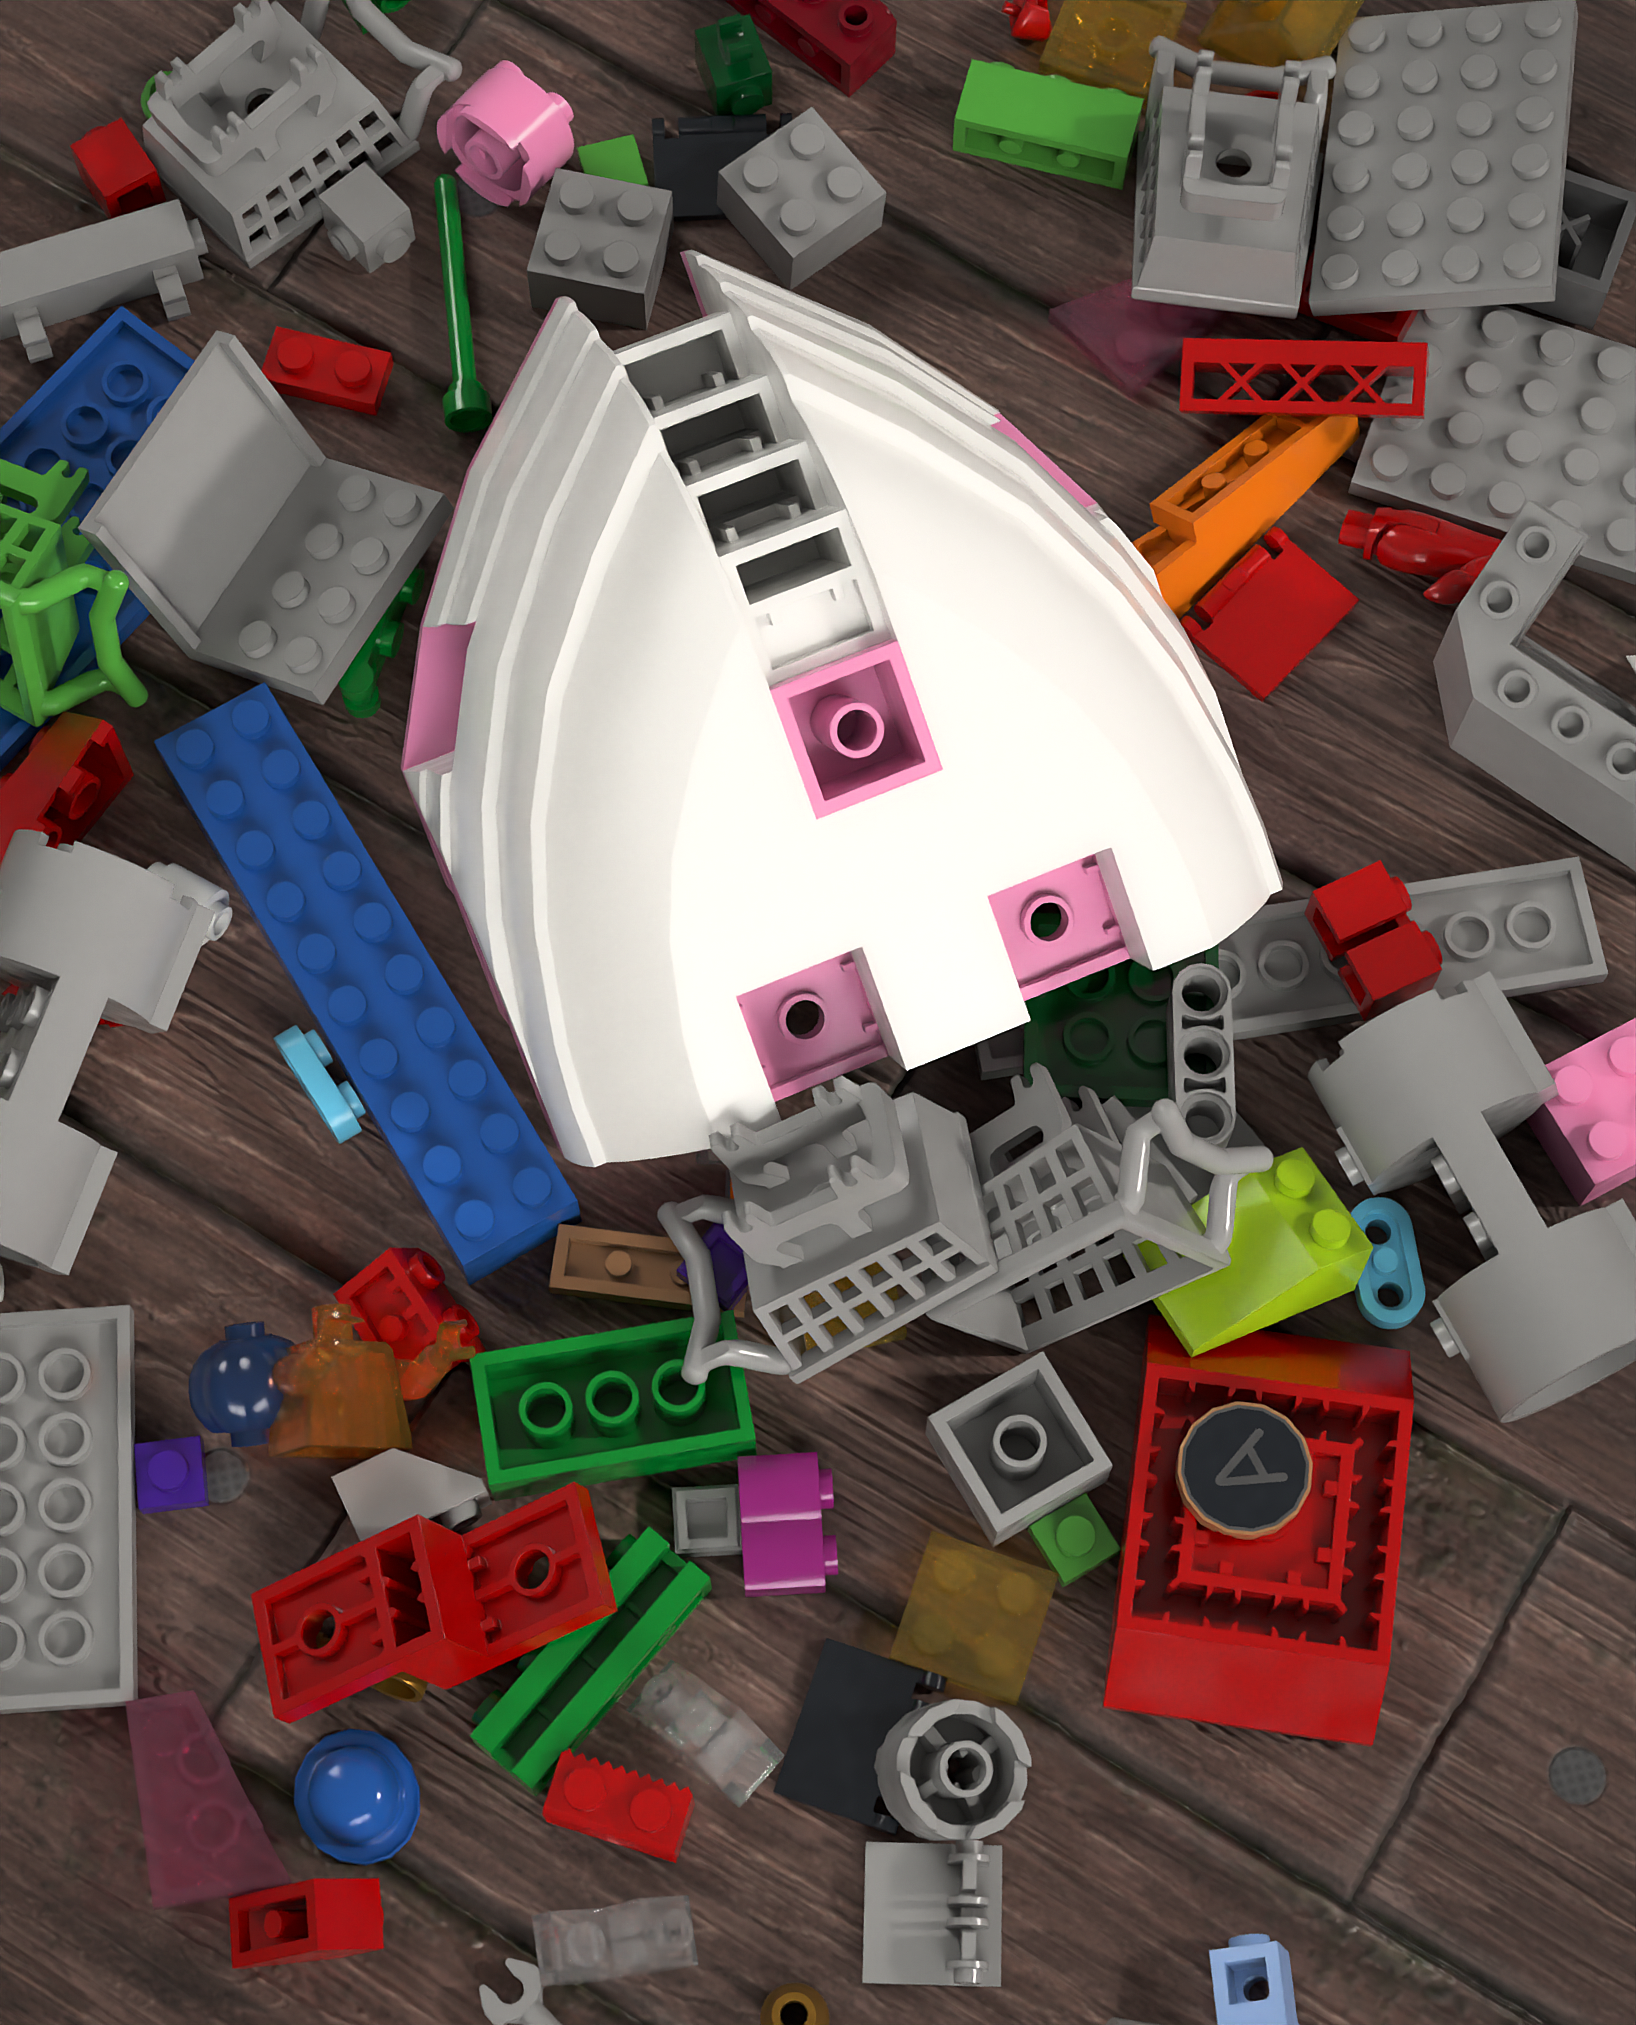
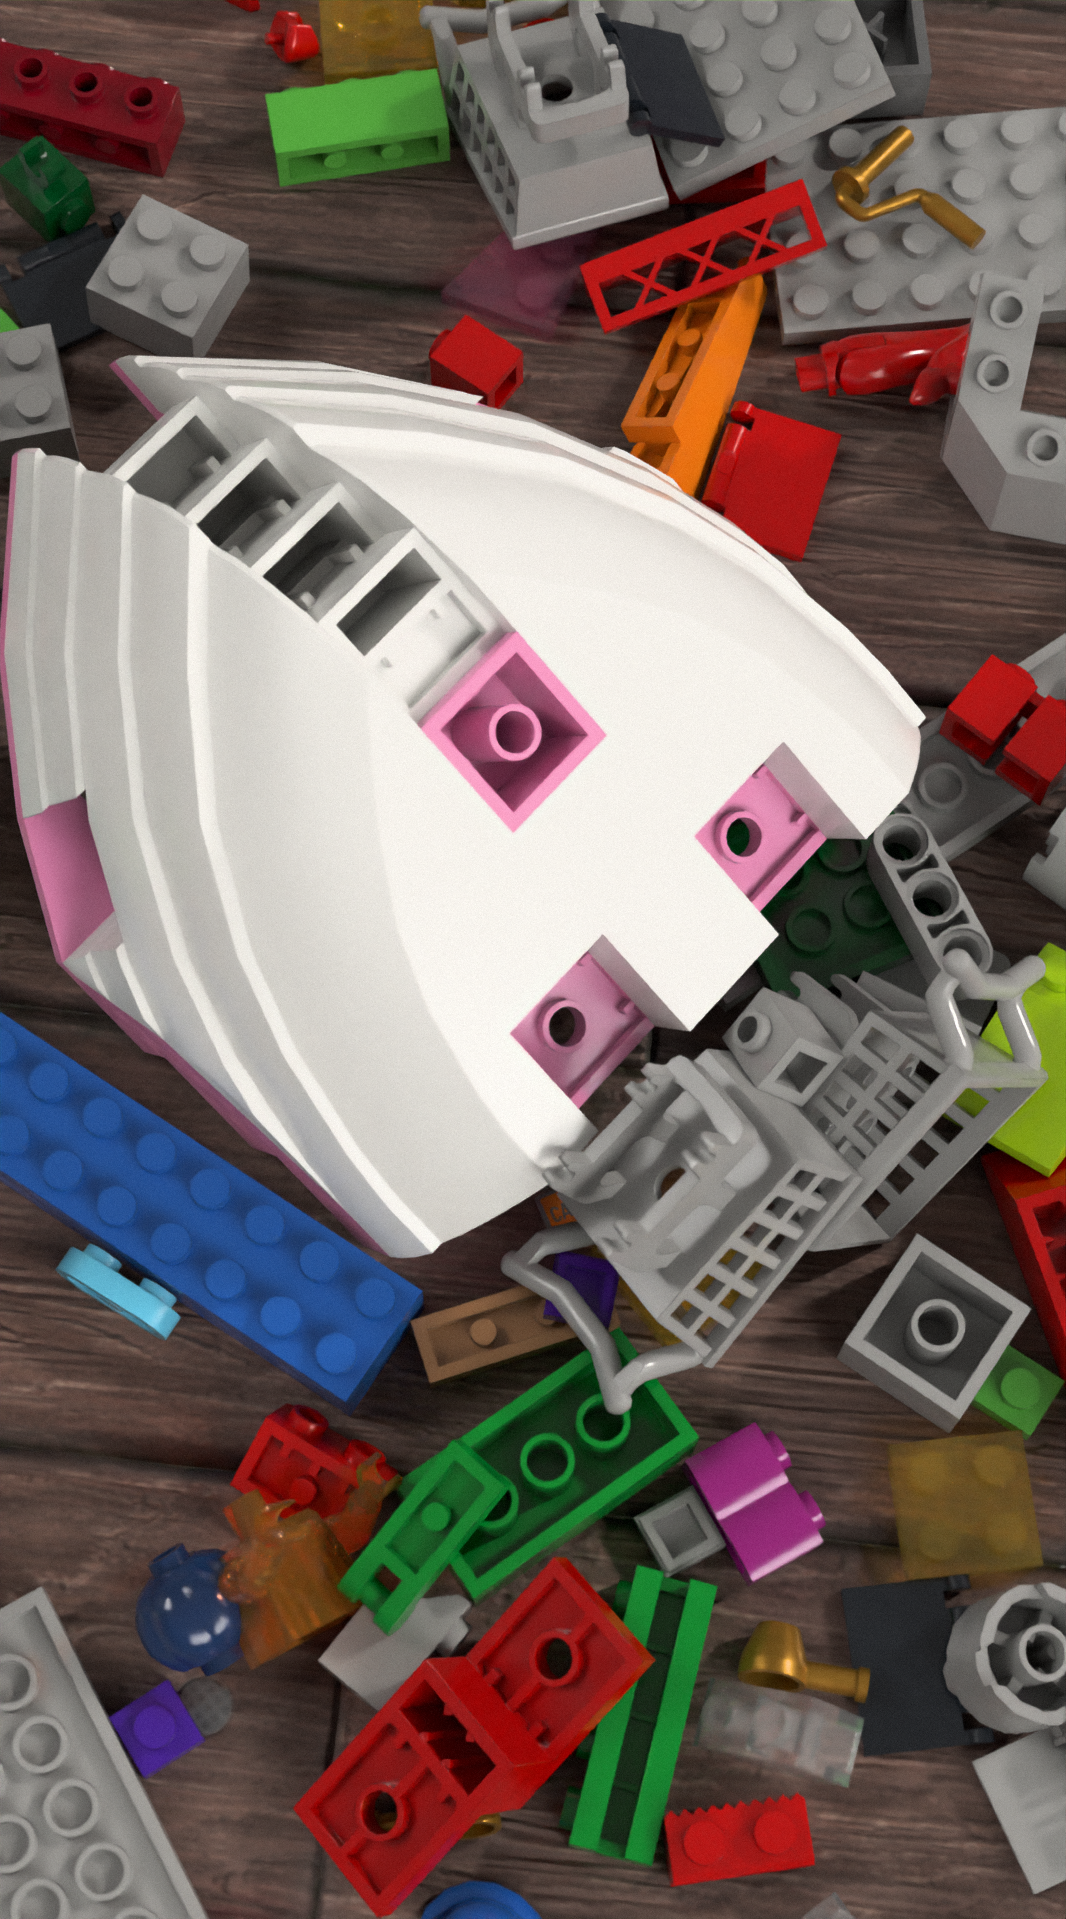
camera: 25 degrees left, 0 degrees up
(469, 1408) = (424, 1534): none -> green plate
(737, 1670) = (778, 1662): none -> pearl gold bar
(987, 1123) = (782, 1047): none -> light grey brick
(1044, 393) = (476, 363): none -> red brick
(1333, 196) = (662, 84): none -> black piece
(1479, 375) = (853, 189): none -> pearl gold piece

